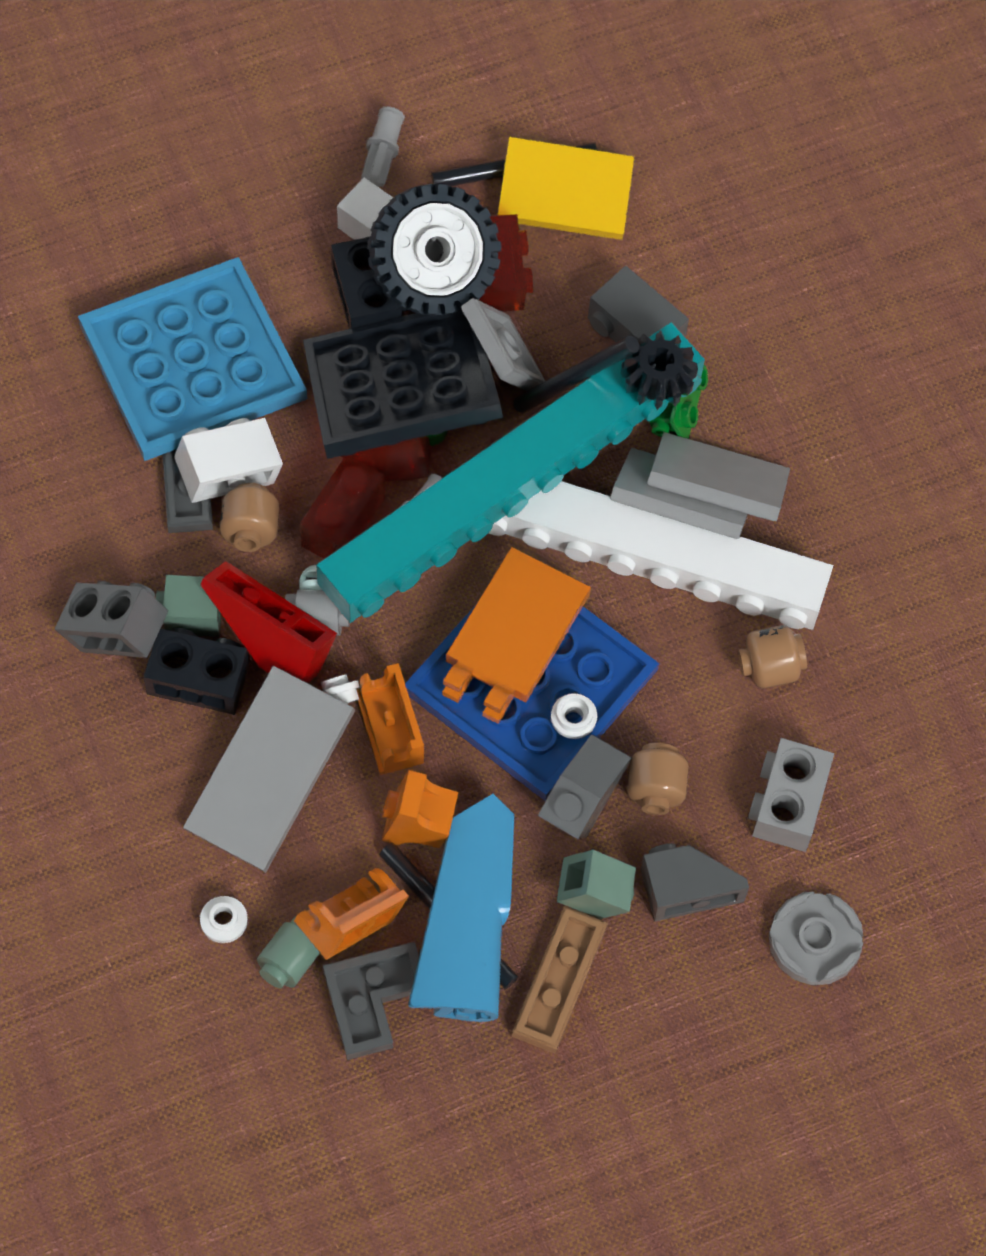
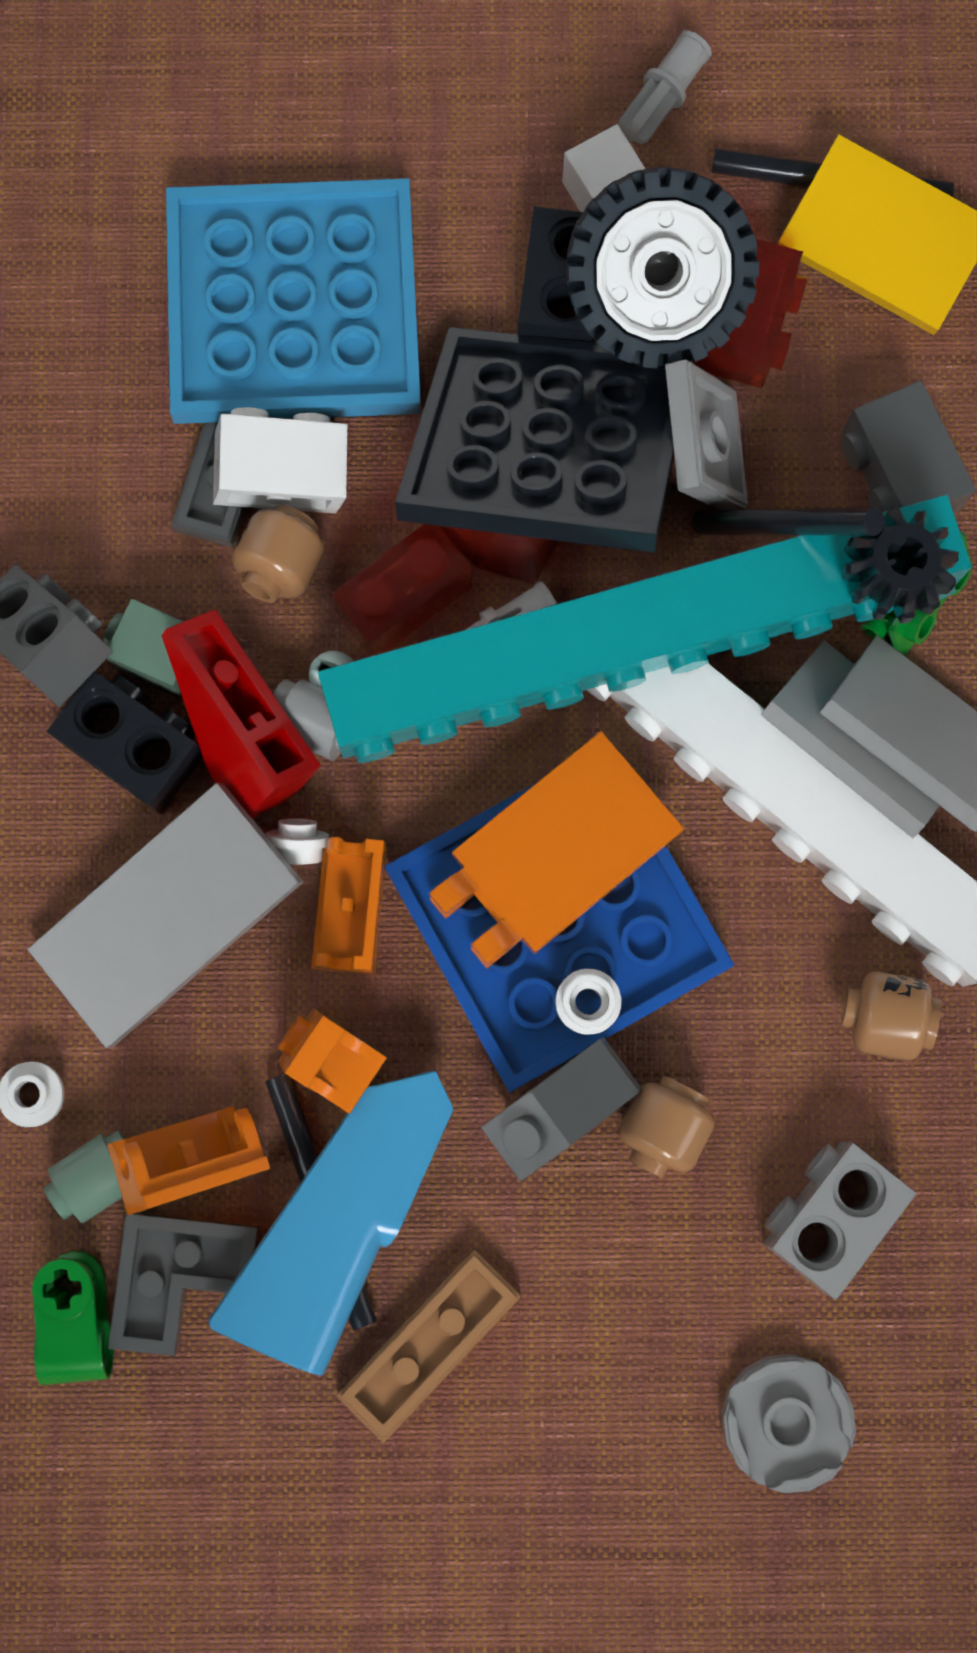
camera: 25 degrees right, 15 degrees up
(317, 1055) = (71, 1330): none -> green piece
(596, 884) = (523, 1248): sand green brick -> none
(688, 882) = (645, 1285): dark grey slope -> none

